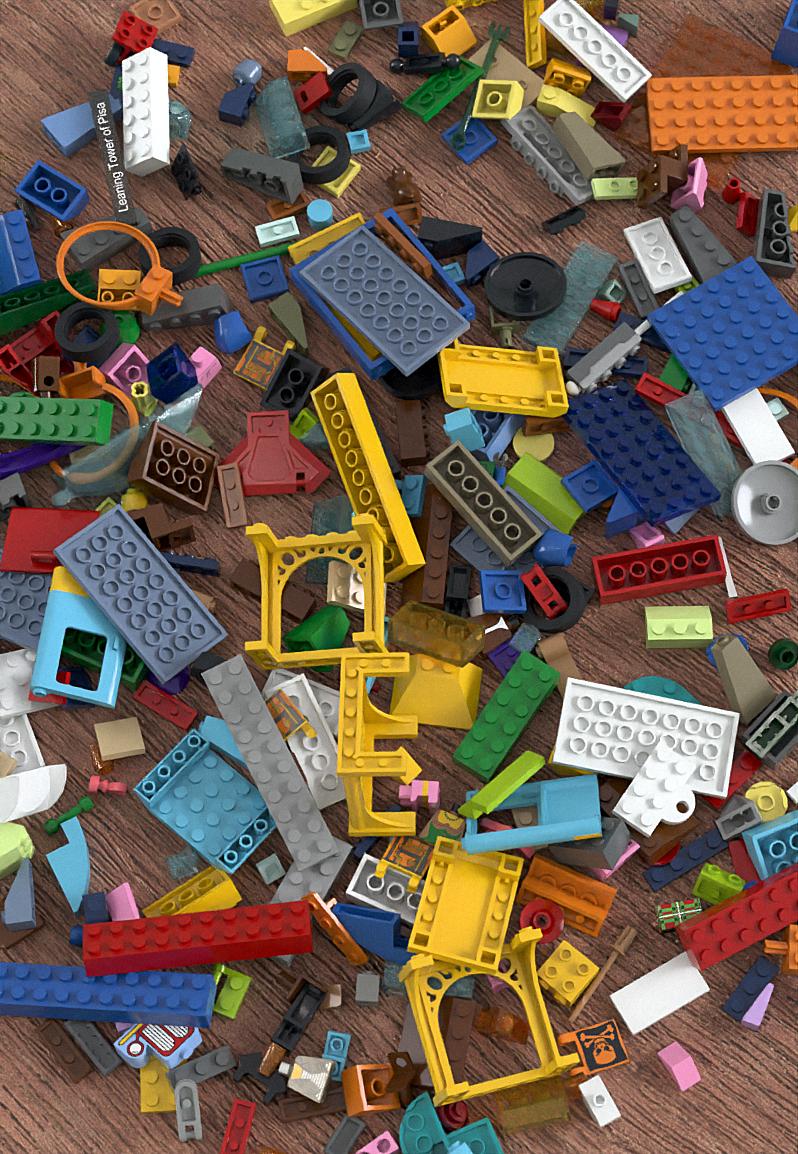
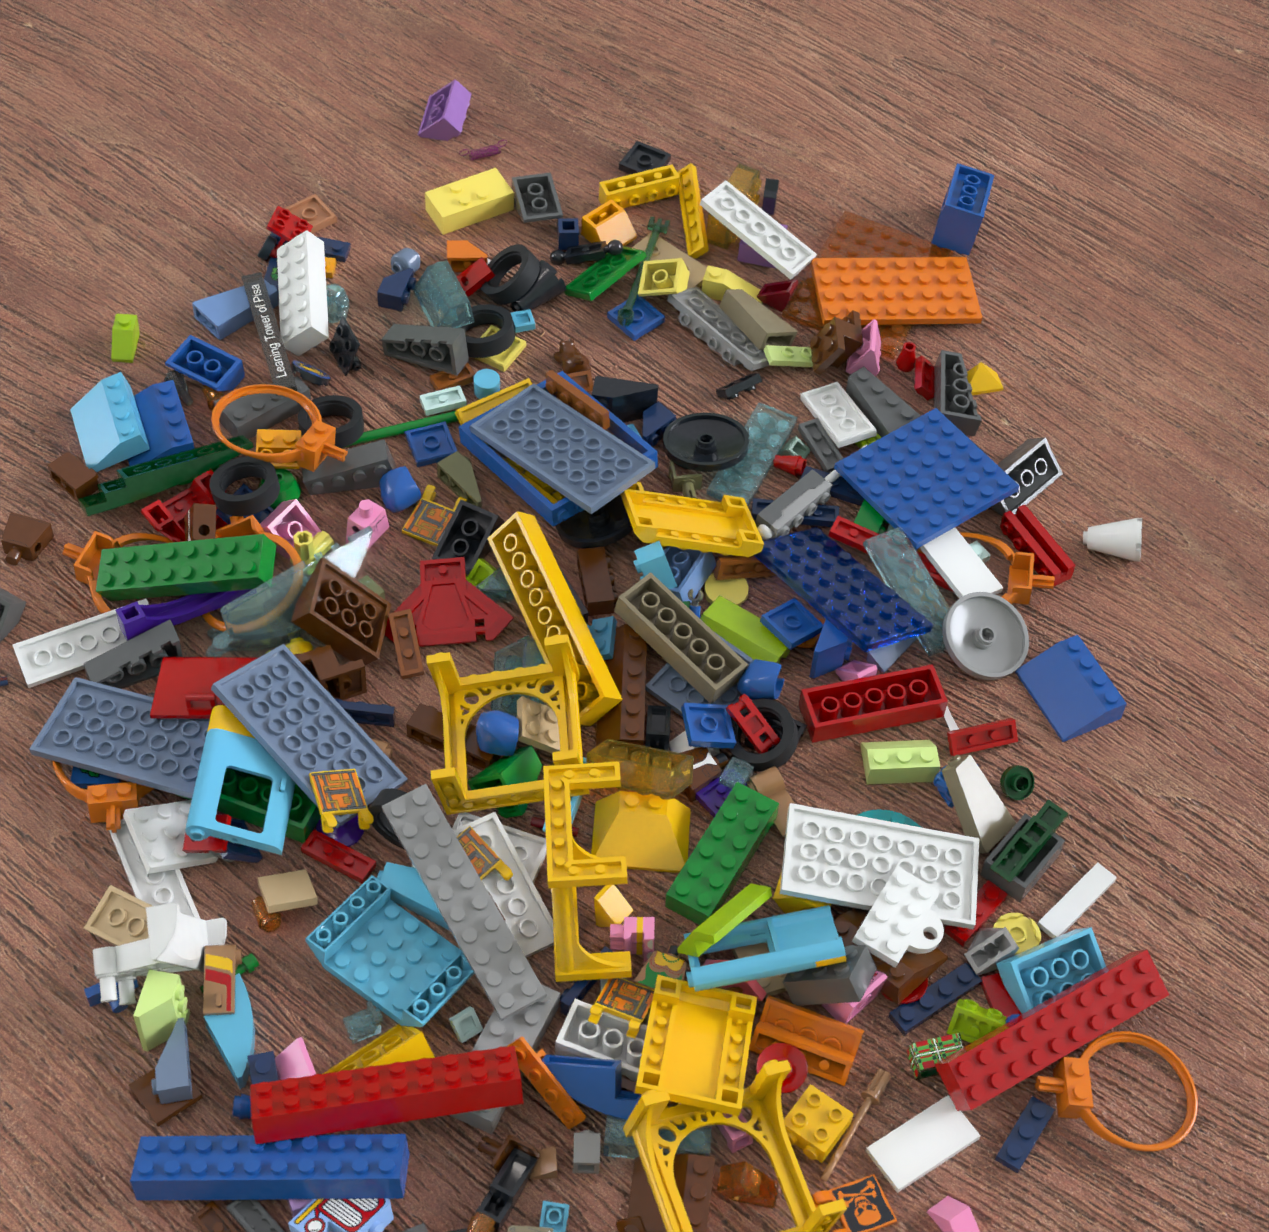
camera: 10 degrees left, 15 degrees down
(59, 820) = (219, 978): none -> medium nougat door
(113, 787) = (283, 944): coral piece -> none
(151, 201) = (310, 373): none -> tile
(165, 654) = (339, 794): none -> flag
(171, 374) = (335, 522): clear blue slope -> none
(232, 991) = (426, 1164): lime plate -> none
(309, 595) = (497, 732): none -> blue piece
(345, 40) = (504, 235): olive plate -> none
(567, 77) = (732, 259): light orange slope -> none
(629, 22) = (788, 217): sand green slope -> none
(754, 1015) = (1035, 1161): lavender slope -> none

